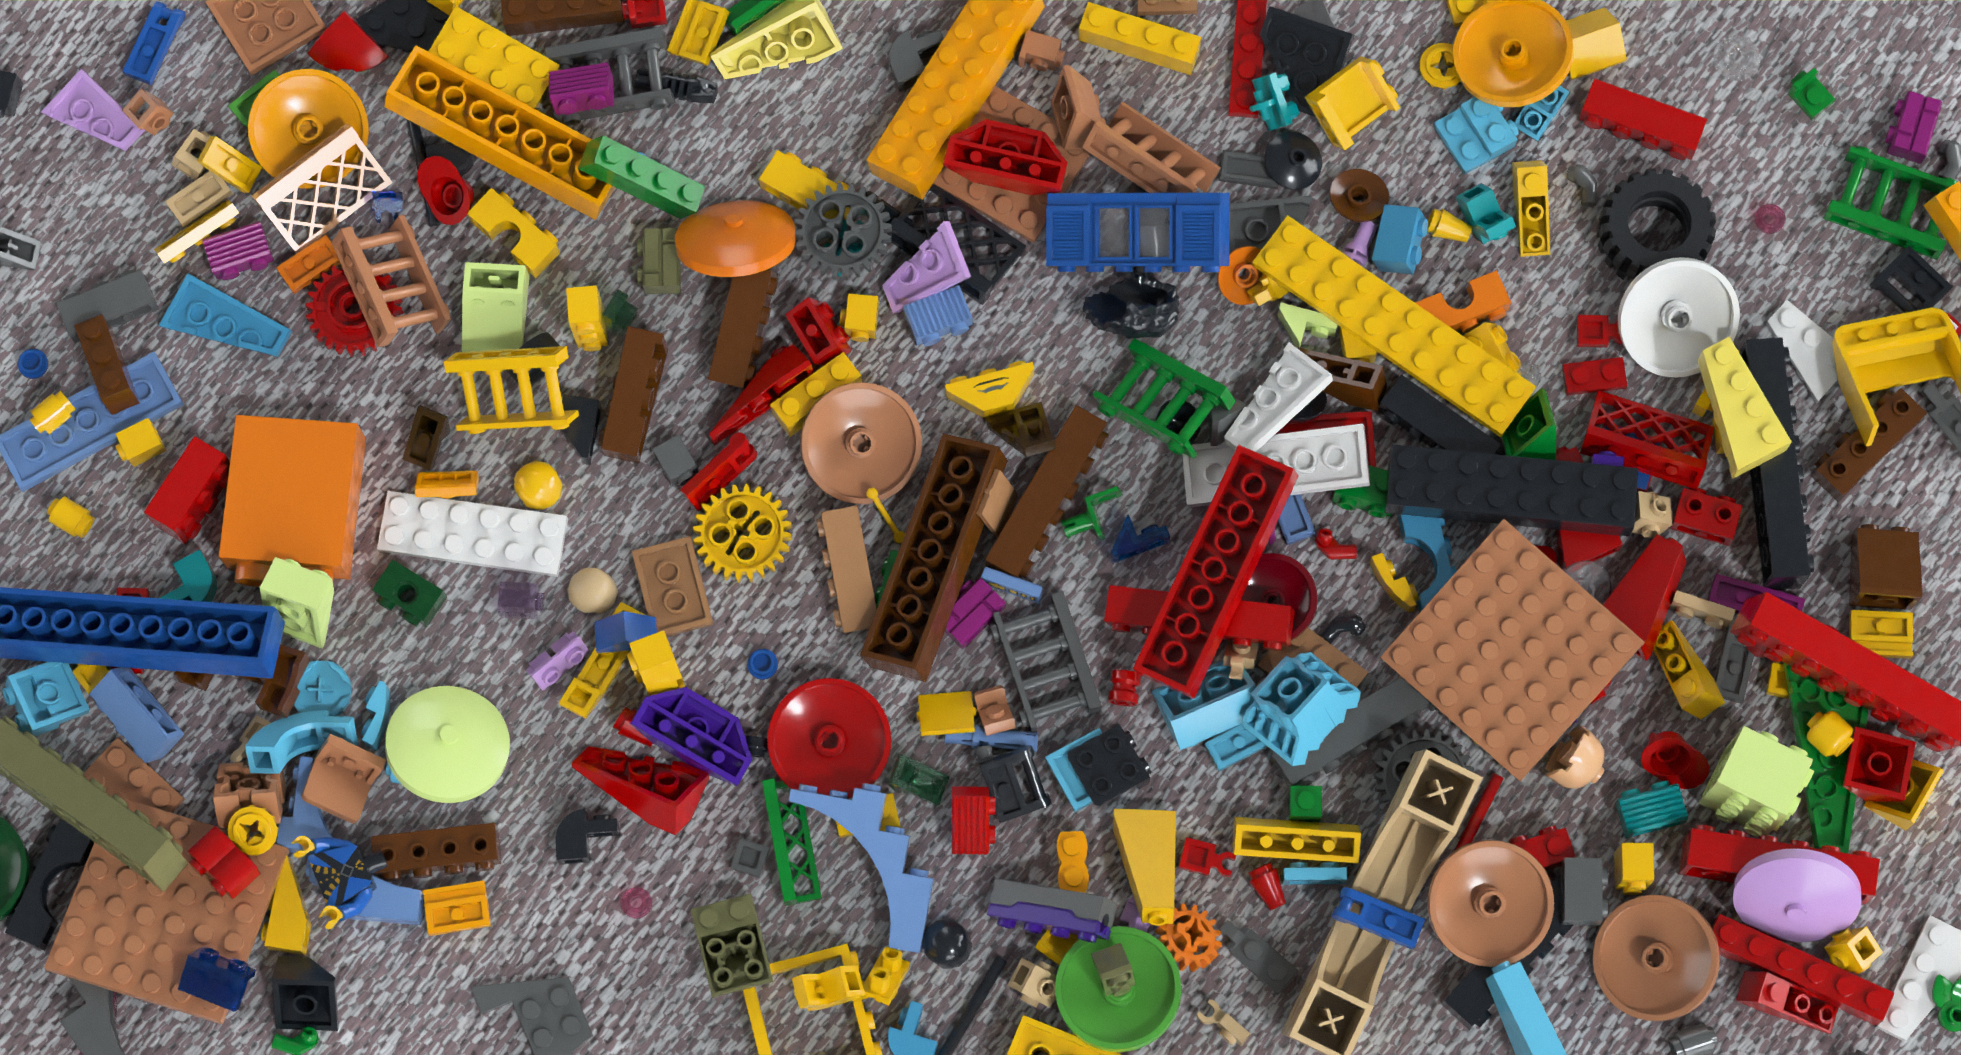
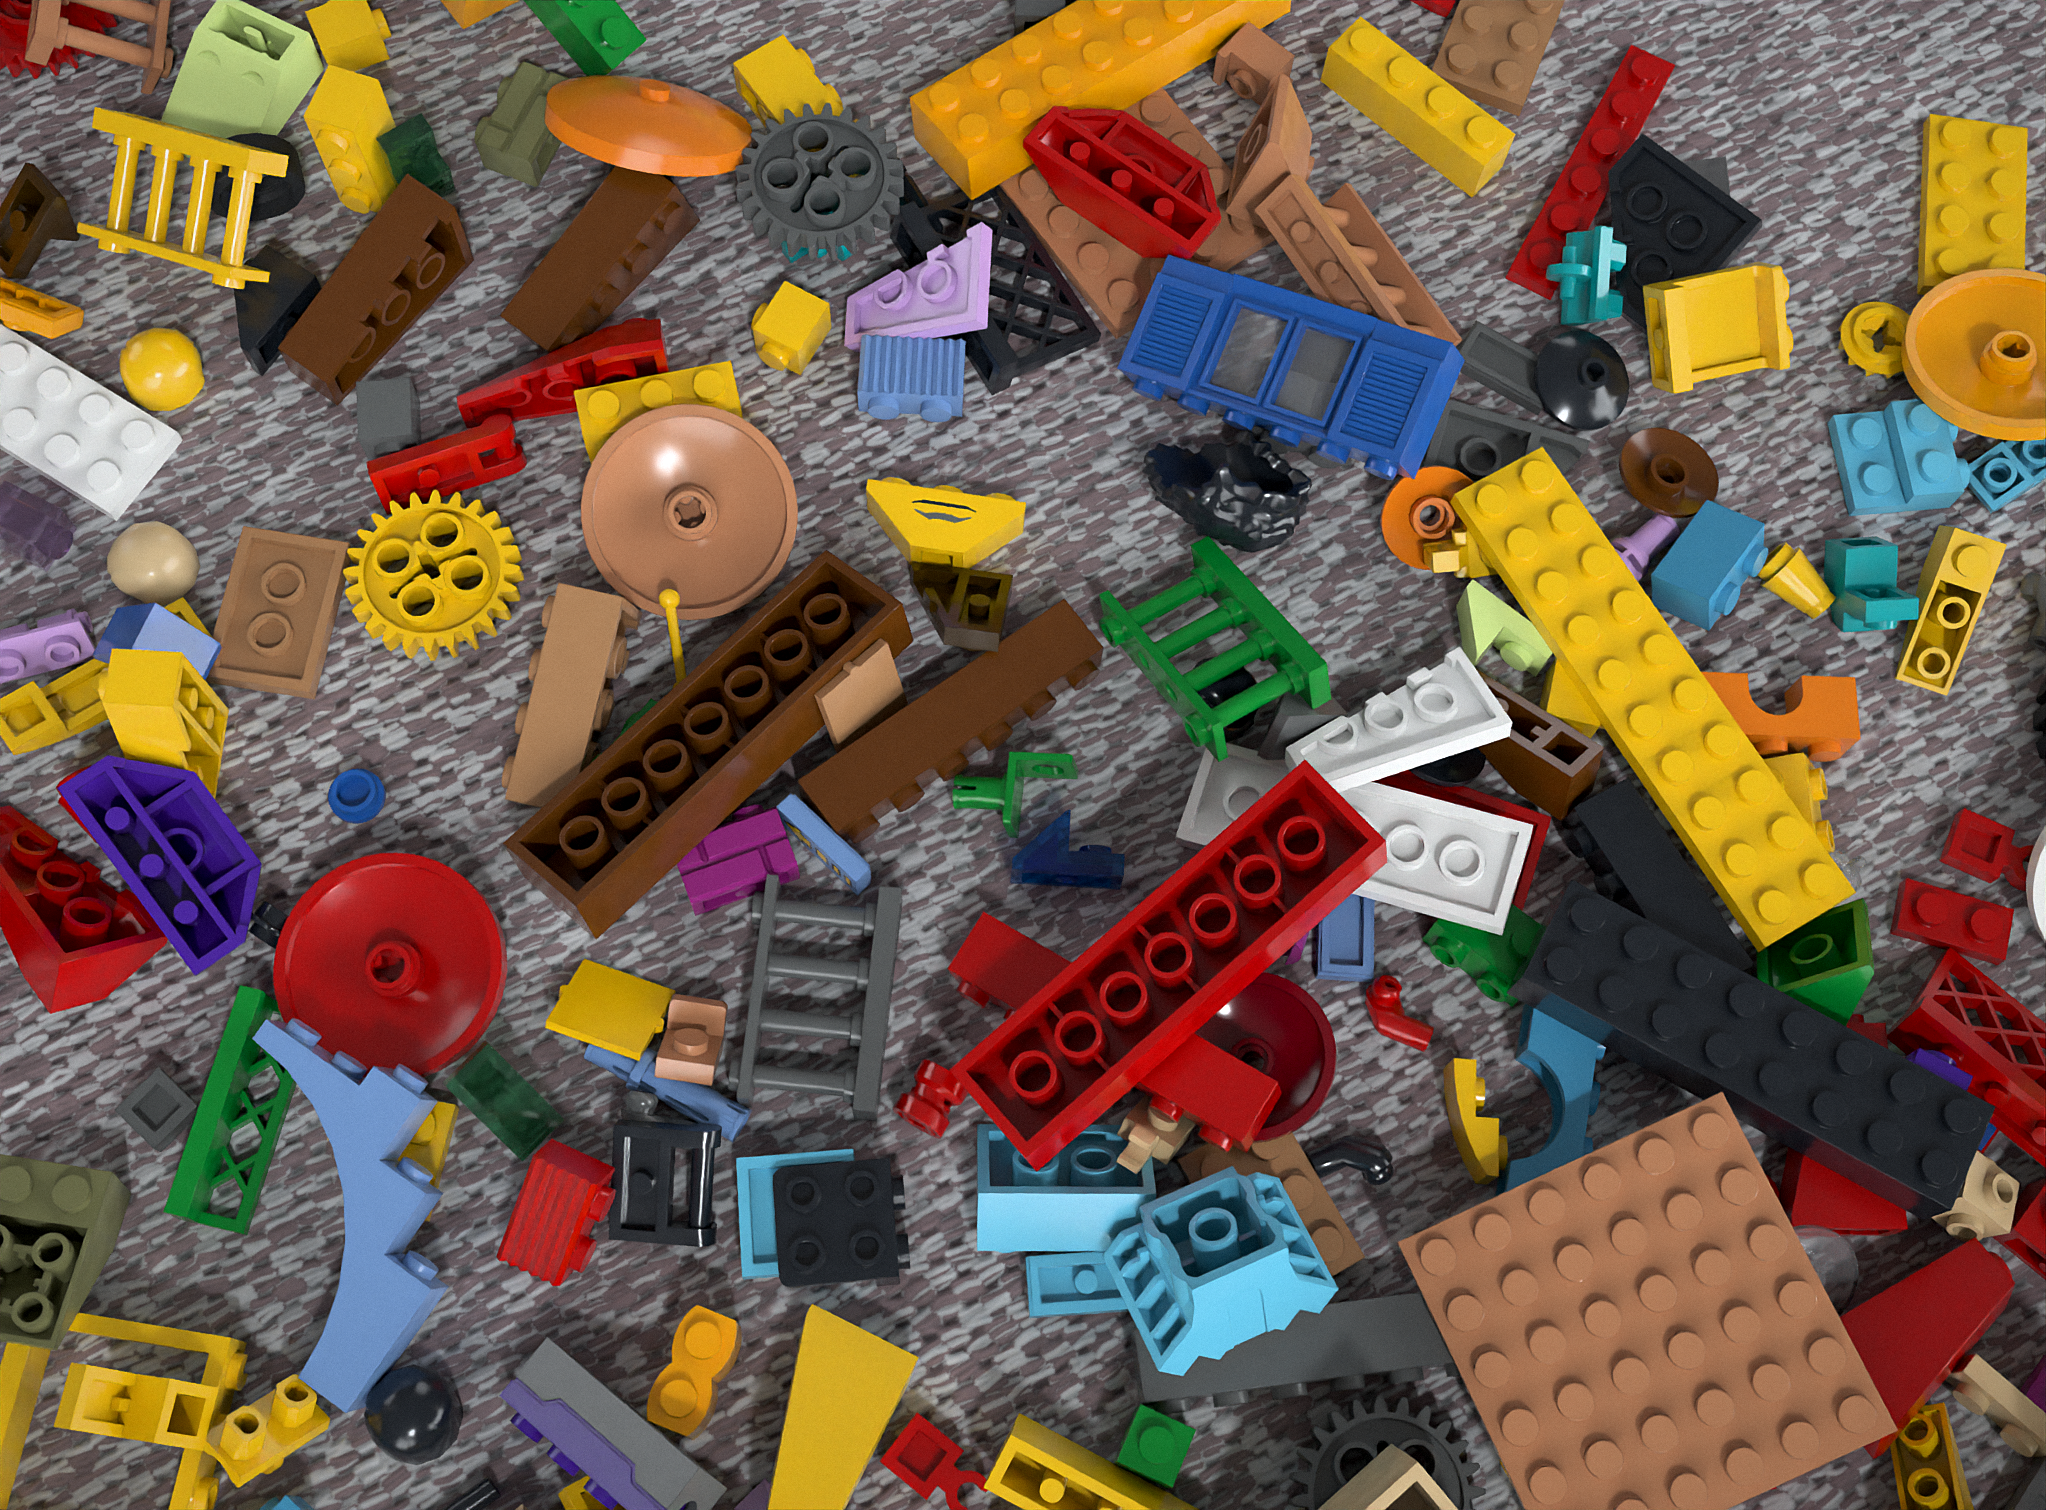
camera: 15 degrees right, 5 degrees down
(818, 330) = (710, 315): red brick -> none

